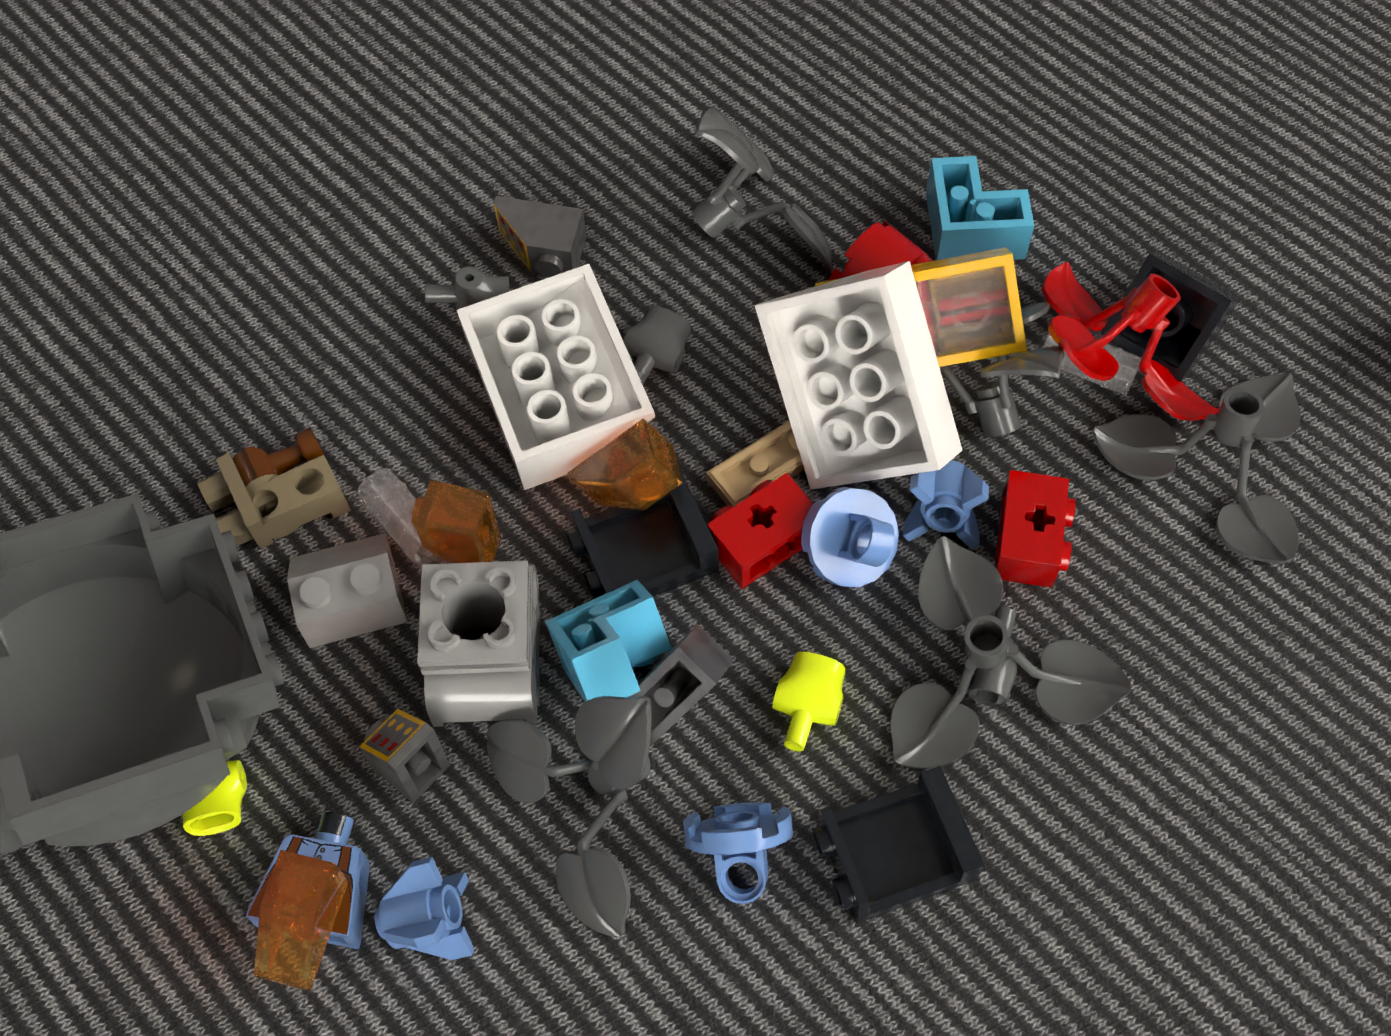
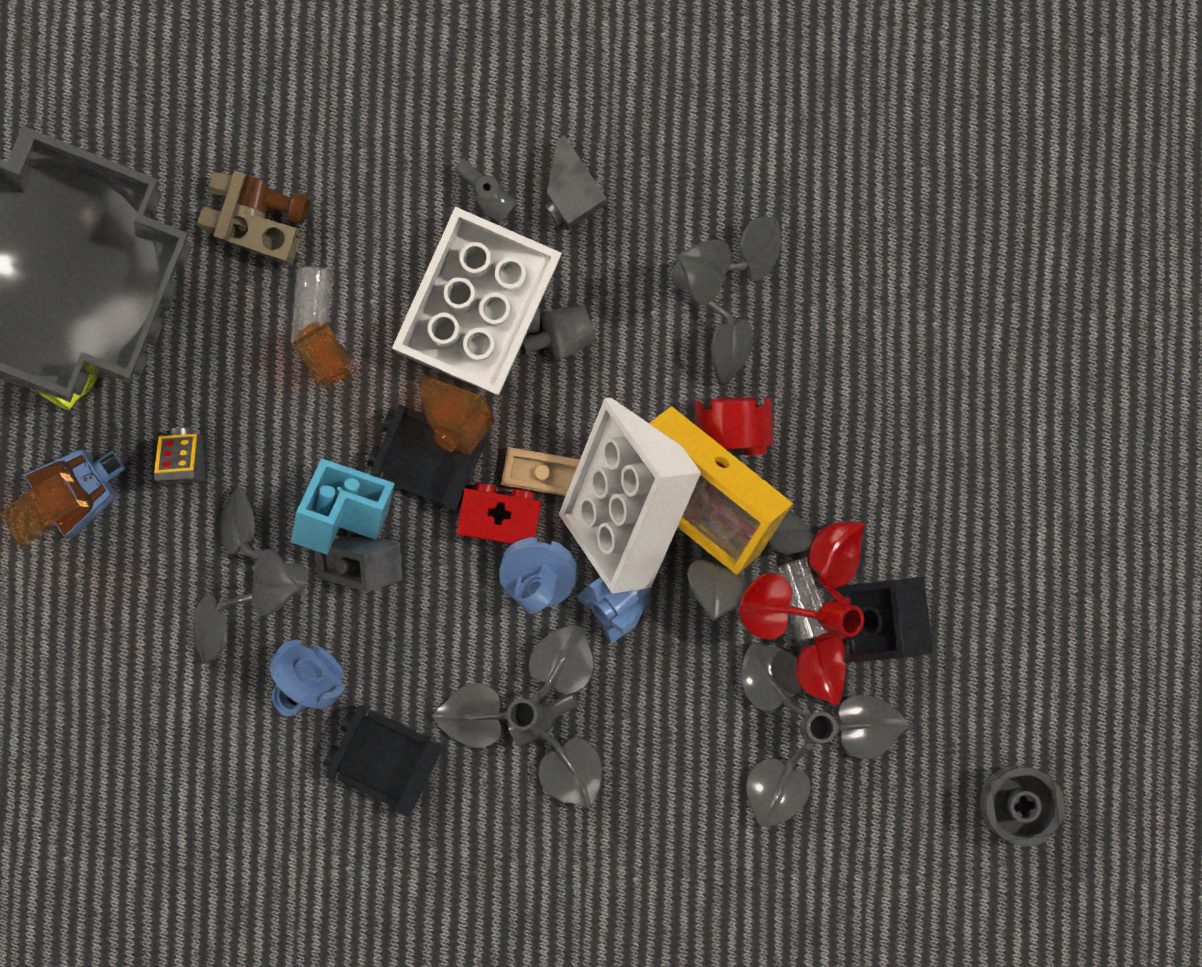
camera: 45 degrees right, 25 degrees up
(345, 591) = (241, 318): light grey slope -> none
(425, 912) = (114, 559): medium blue brick -> none
(484, 676) = (314, 431): light grey piece -> none
(809, 694) = (425, 636): neon yellow piece -> none
(973, 220) = (830, 442): medium azure brick -> none
(1027, 504) = (657, 646): red brick -> none

